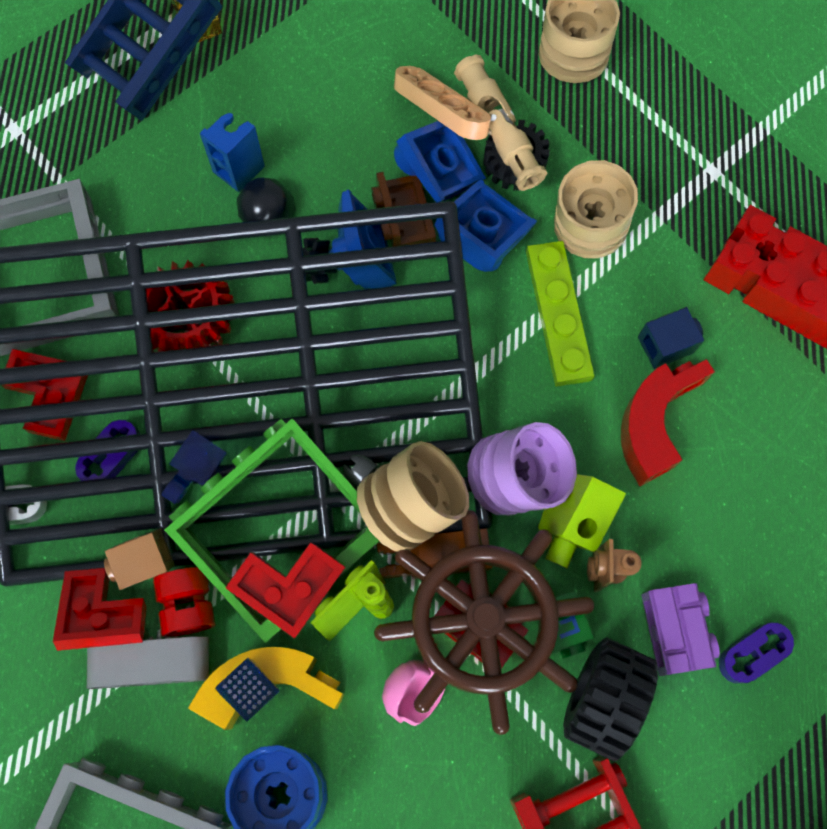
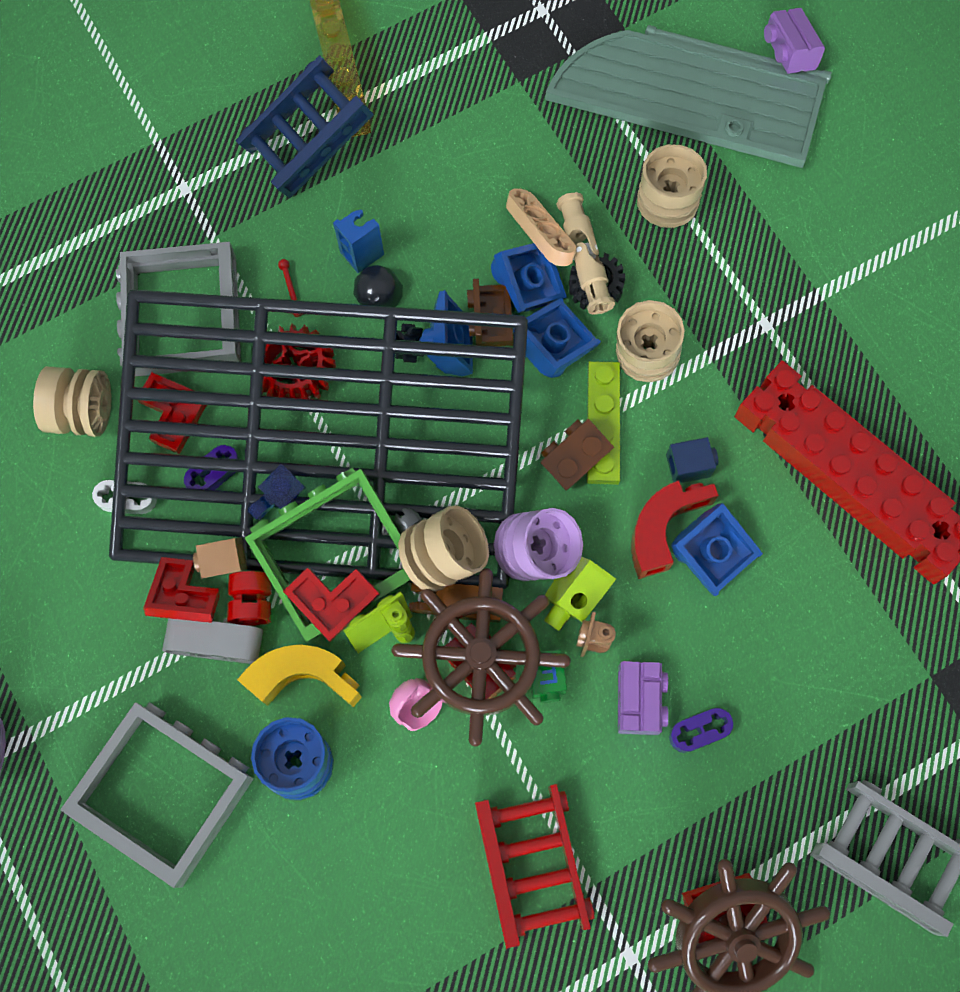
camera: 15 degrees right, 0 degrees up
(150, 197) = (284, 265): none -> red hinge
(247, 689) = (285, 673): clear blue slope -> none
(538, 353) = (576, 453): none -> reddish brown bracket
(611, 699) = (567, 737): black tyre -> none
(723, 433) = (715, 548): none -> blue slope

